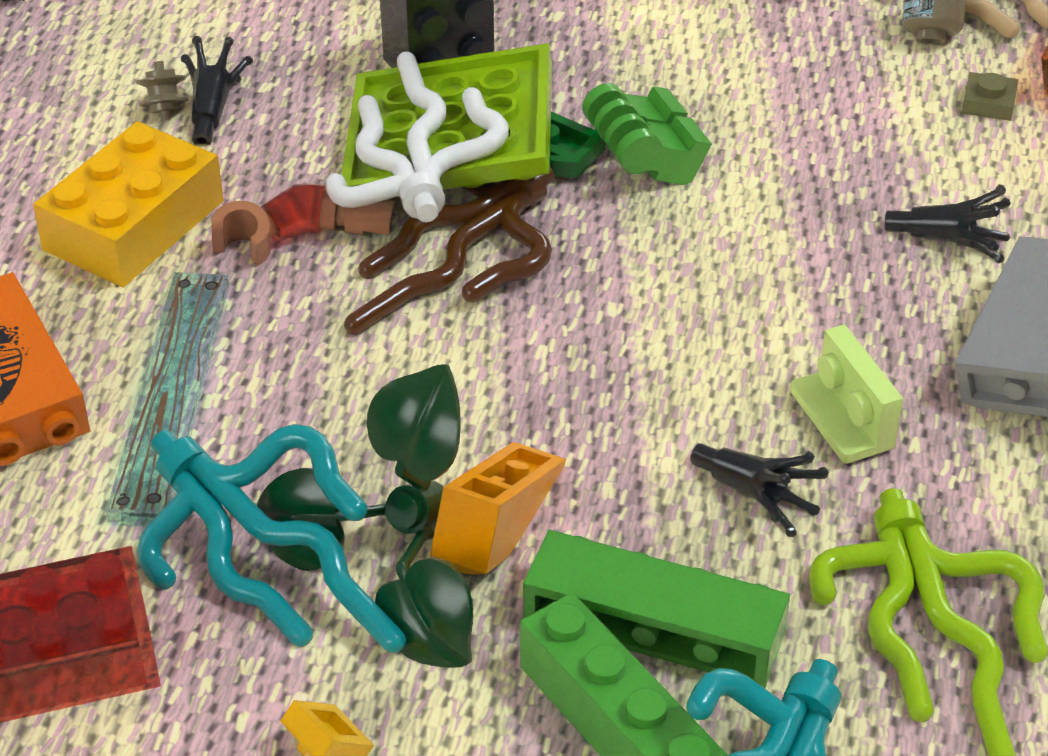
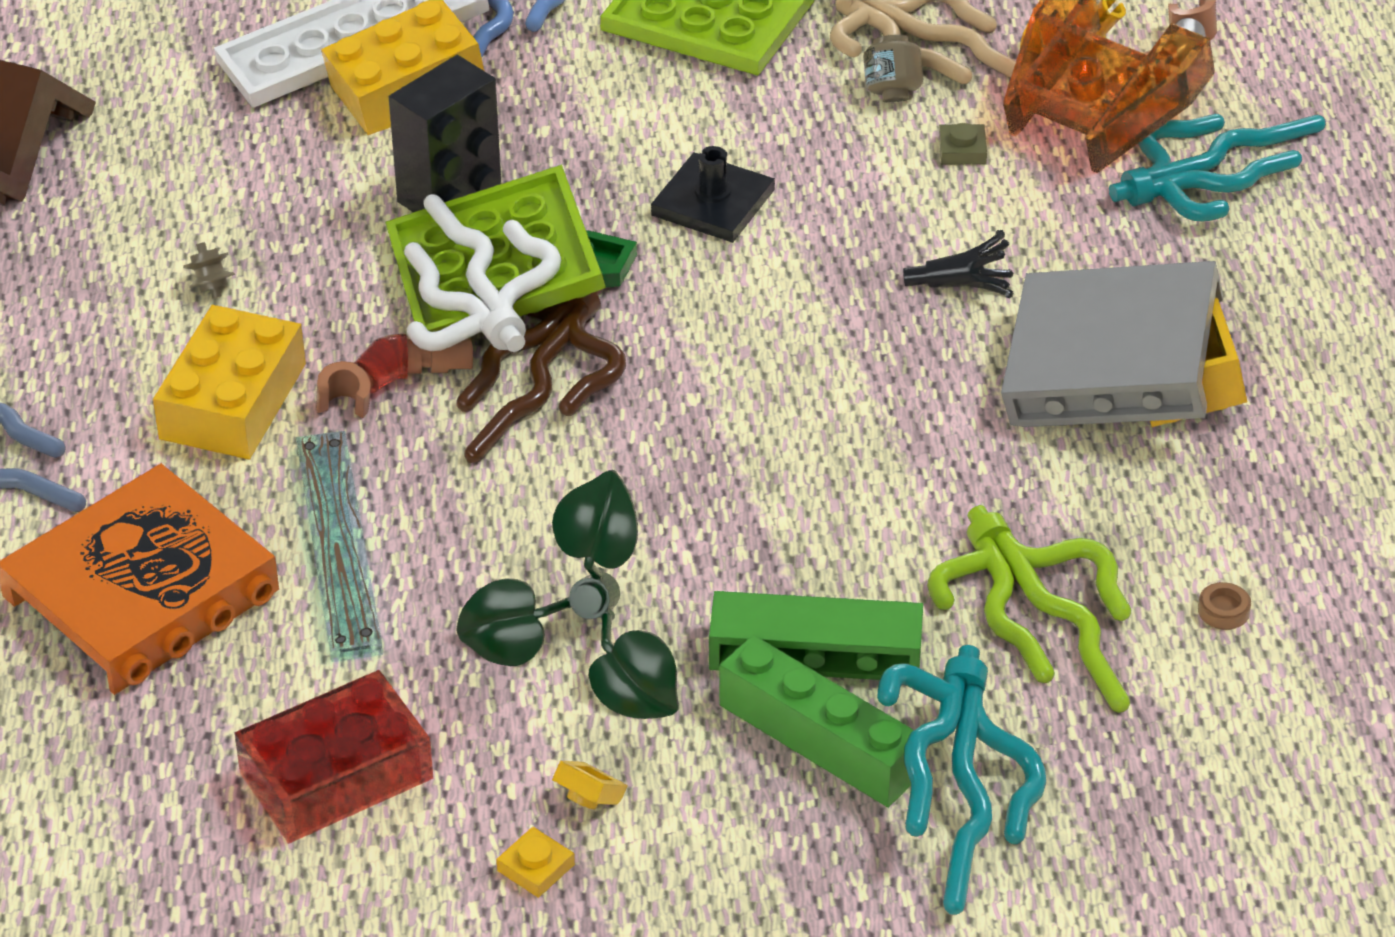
camera: 15 degrees left, 0 degrees up
(207, 485) = (418, 610): teal plant -> none
(210, 88) = (254, 260): black piece -> none
(492, 506) = (657, 582): light orange slope -> none
(647, 132) = (675, 233): bright green legs -> none
(718, 100) = (713, 195): none -> black tile
(760, 478) = (865, 518): black piece -> none
(850, 398) = (922, 438): yellowish green bracket -> none

